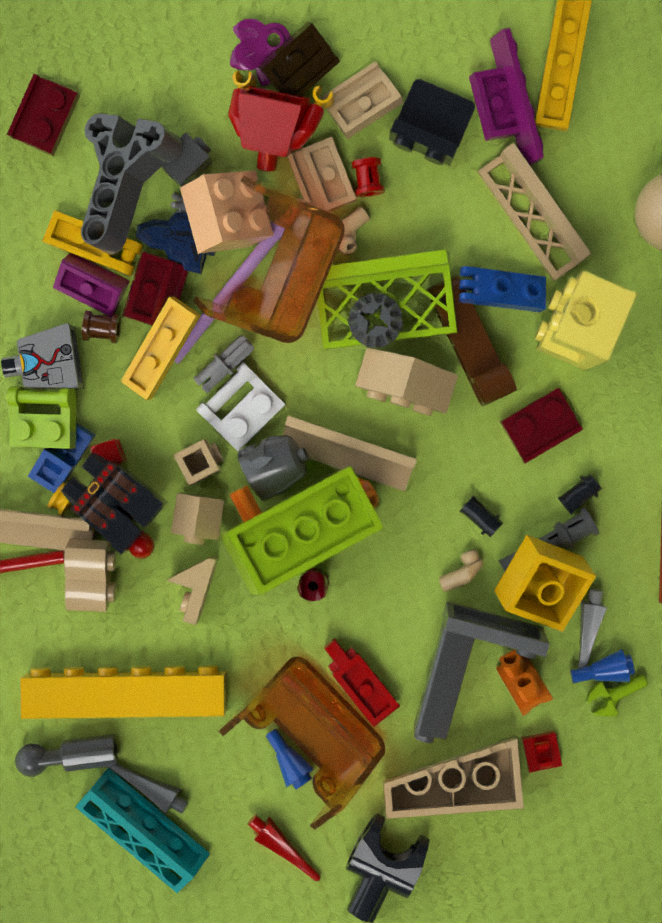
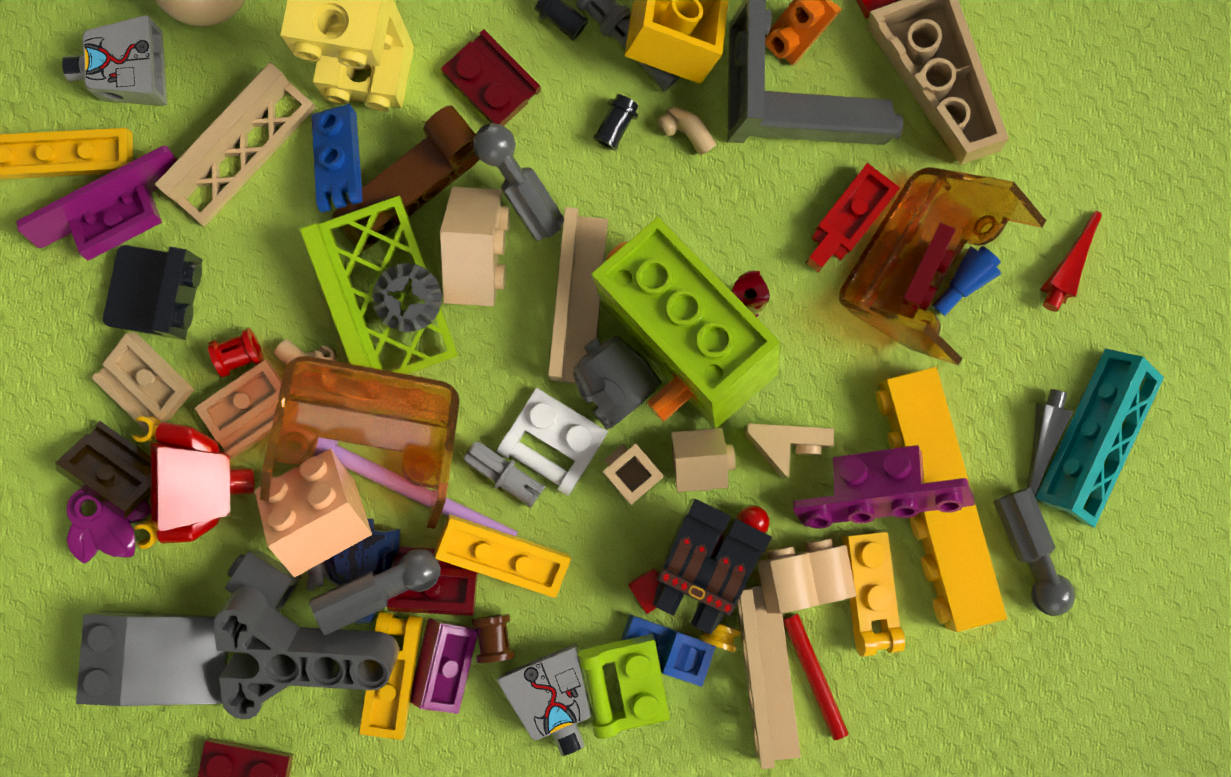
camera: 105 degrees left, 5 degrees down
(66, 625) = (875, 593): none -> yellow plate
(143, 648) = (882, 486): none -> magenta bracket
(147, 65) = (149, 660): none -> slope
(155, 242) = (370, 592): none -> dark grey piece
(308, 740) = (935, 259): none -> dark red plate
(382, 870) = (1066, 137): black connector -> none
(442, 429) = (521, 186): none -> dark grey piece
(623, 135) = (122, 62): none -> light grey torso

